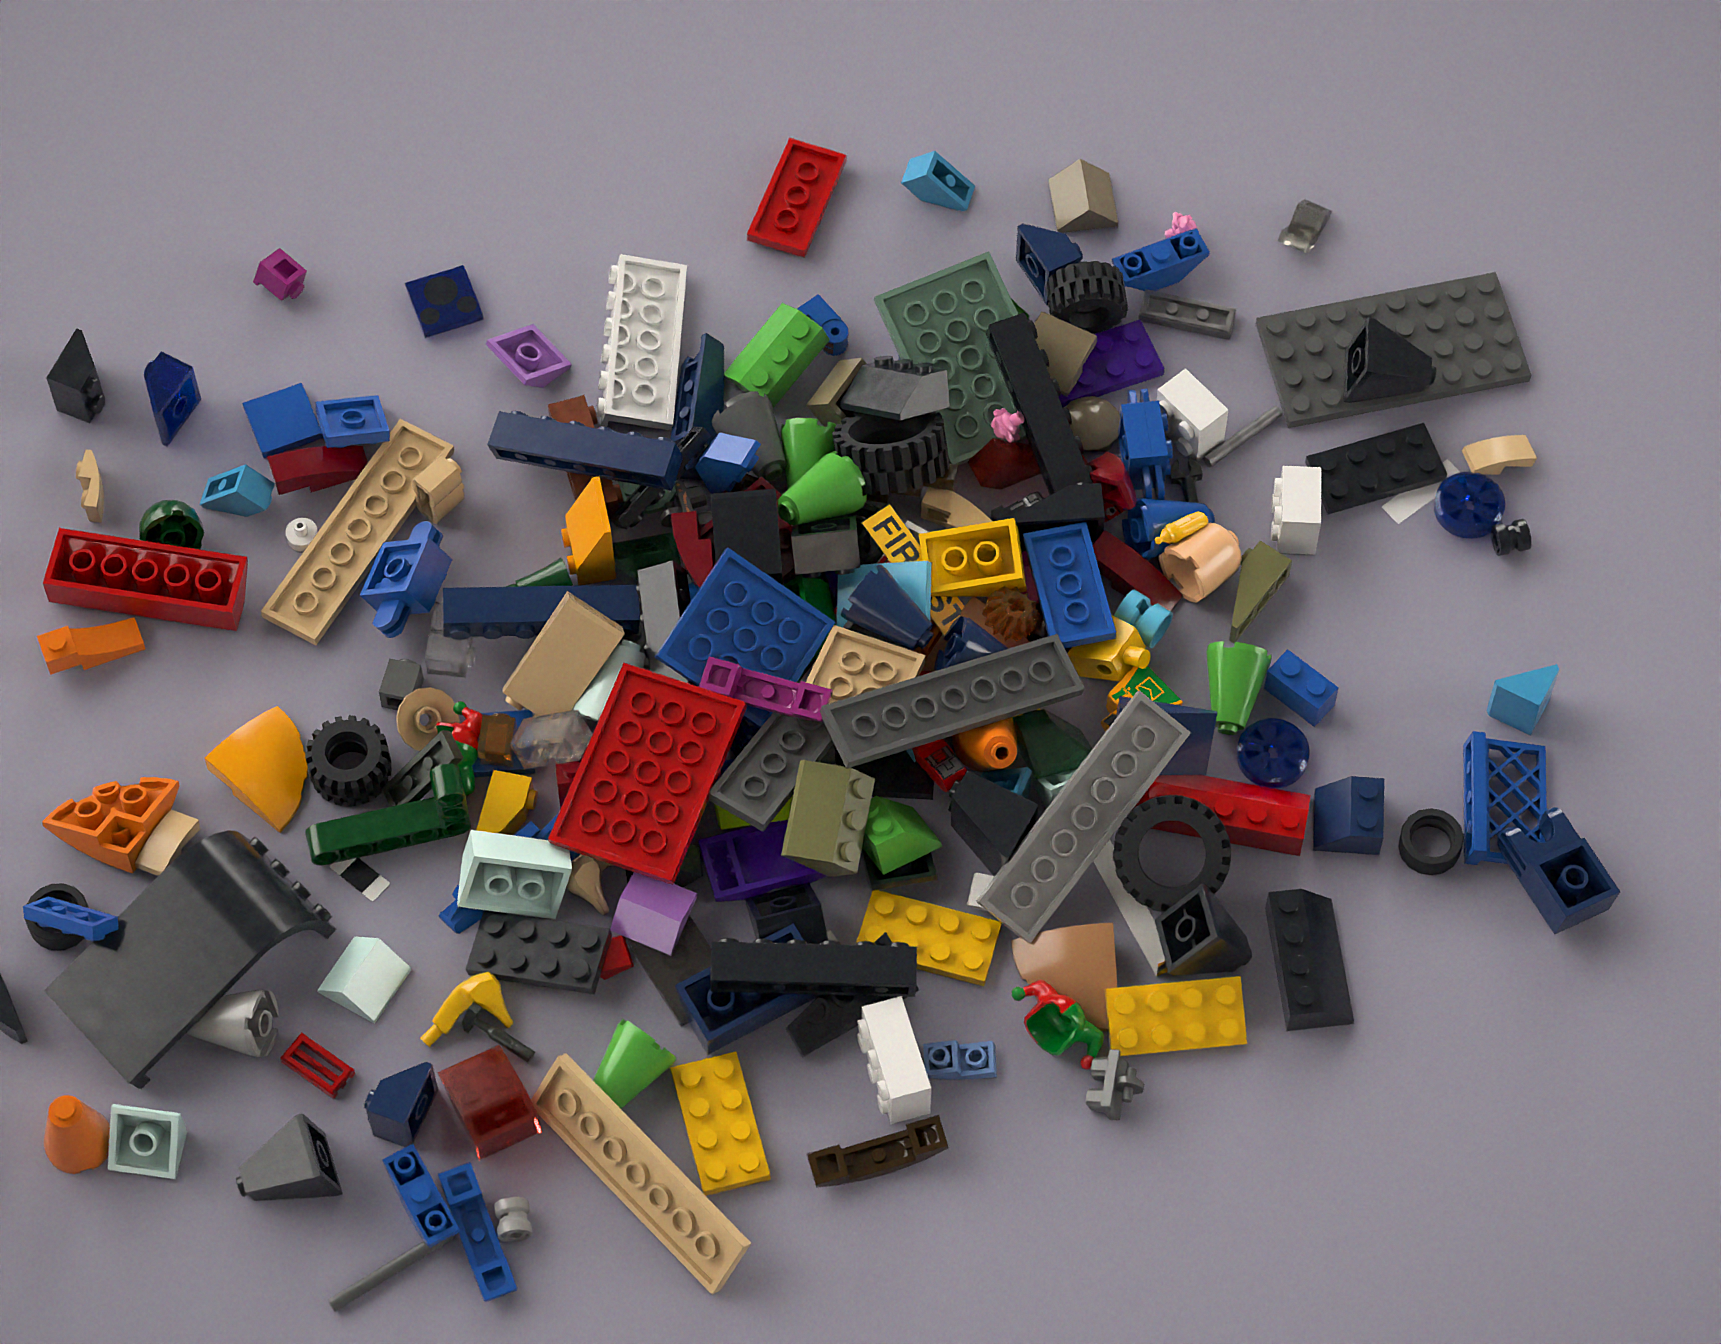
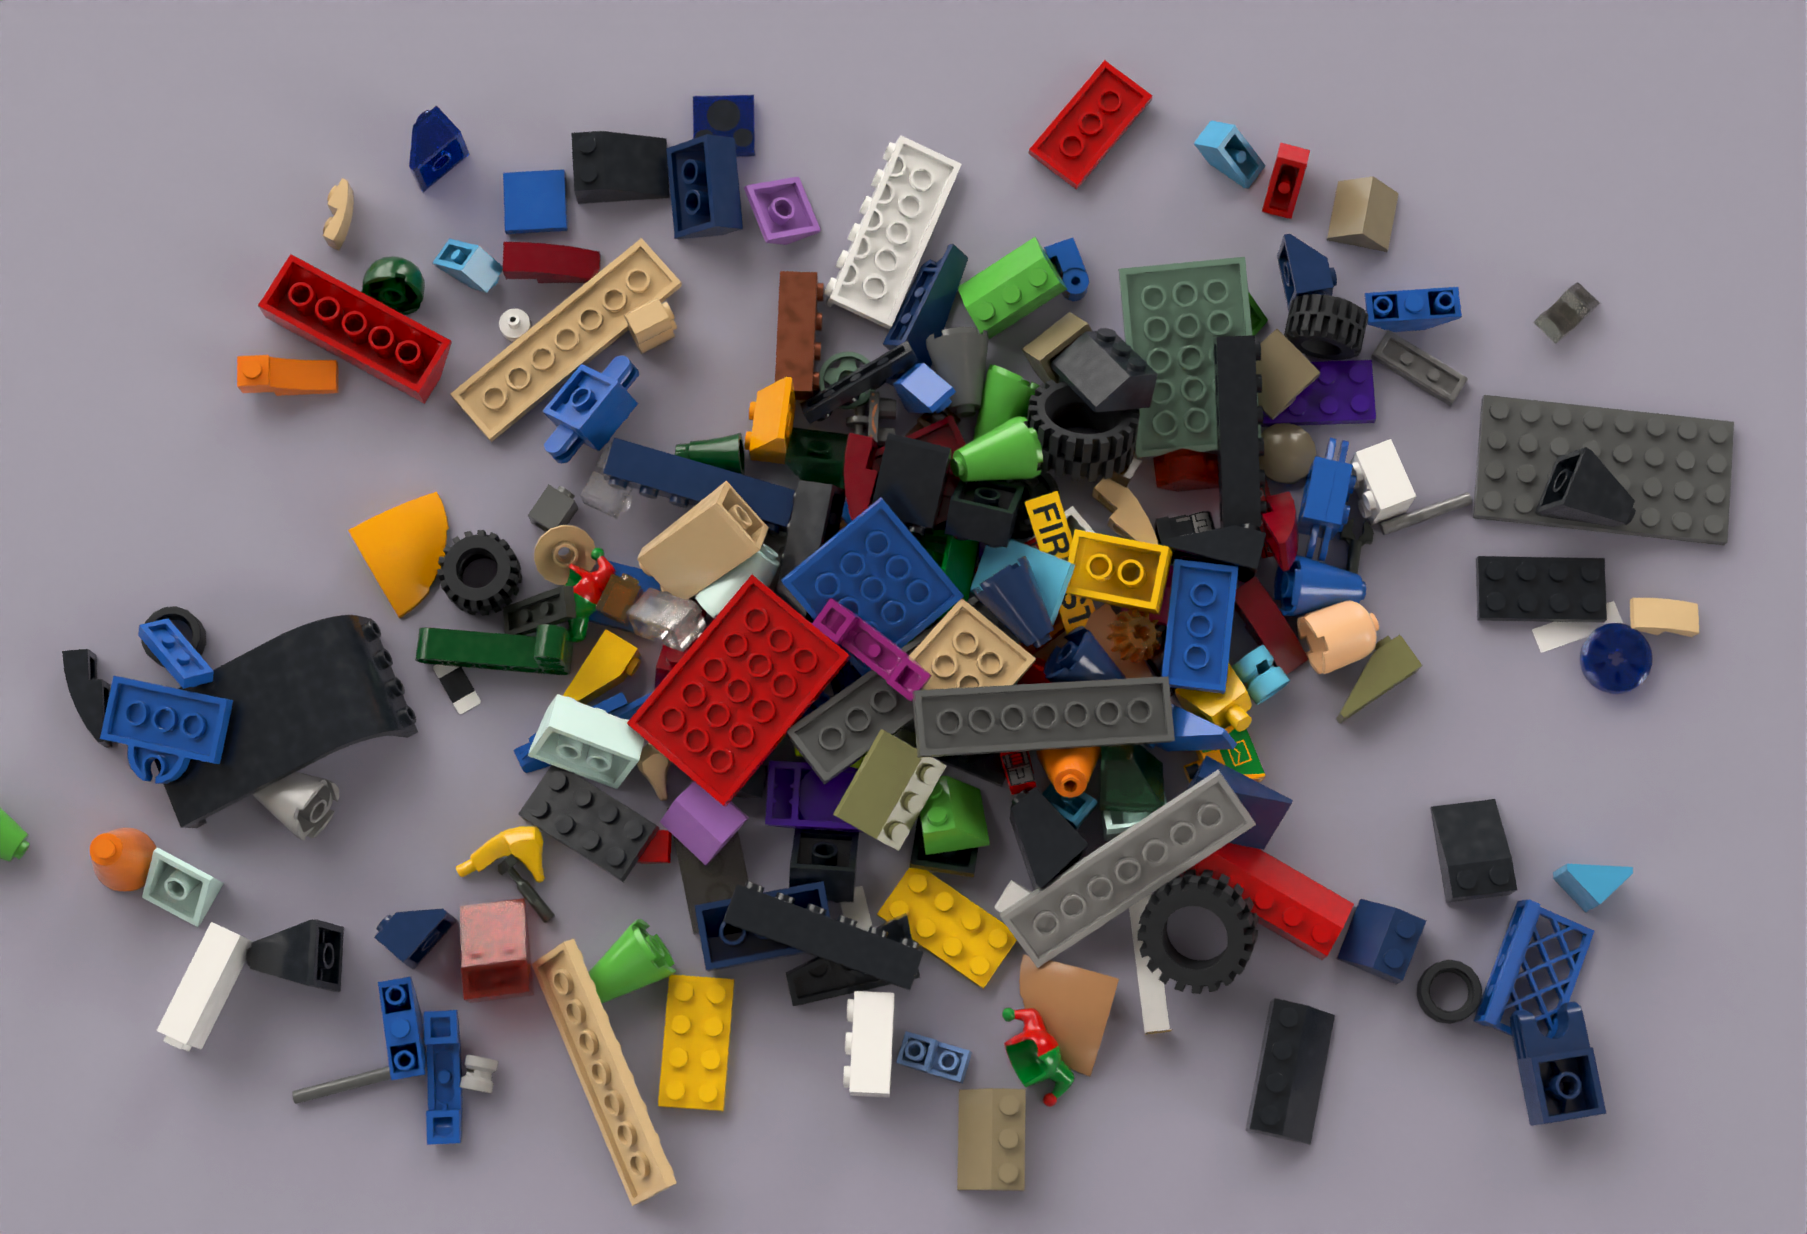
camera: 20 degrees right, 15 degrees up
(75, 381) = (358, 102): black slope -> none
(83, 987) = (165, 726): none -> blue plate
(114, 819) = (255, 559): orange brick -> none
(166, 842) = (290, 598): tan slope -> none
(206, 1222) = (204, 988): none -> white brick
(281, 275) = (580, 44): magenta brick -> none
(338, 1081) = (372, 883): red tile -> none
(352, 421) = (595, 227): blue plate -> none
(355, 363) = (619, 167): none -> black slope
(365, 977) = (426, 790): light aqua slope -> none
(446, 356) = (704, 187): none -> dark blue slope
(585, 450) = (796, 335): dark blue brick -> none
(878, 1156) = (826, 1125): dark brown slope -> none
(1000, 191) = (1286, 180): none -> red slope
(1007, 424) = (1201, 438): bright pink plant -> none
(1045, 1114) = (991, 1139): none -> dark tan slope
(1101, 683) = (1195, 734): none -> blue slope
(1118, 1087) = (1068, 1135): dark grey hips -> none
(1176, 1016) = (1146, 1086): yellow plate -> none
(1180, 225) = (1446, 276): bright pink plant -> none
(1181, 528) = (1328, 602): yellow piece -> none
(1201, 936) = (1194, 1022): black slope -> none
(1235, 682) = (1321, 773): bright green cone -> none
(1289, 745) = (1351, 841): clear blue wheel -> none
(1297, 510) = (1448, 614): white brick -> none
(1301, 688) = (1383, 795): blue piece -> none
(1405, 714) = (1473, 851): none -> black slope
(1511, 537) = (1639, 706): black wheel -> none

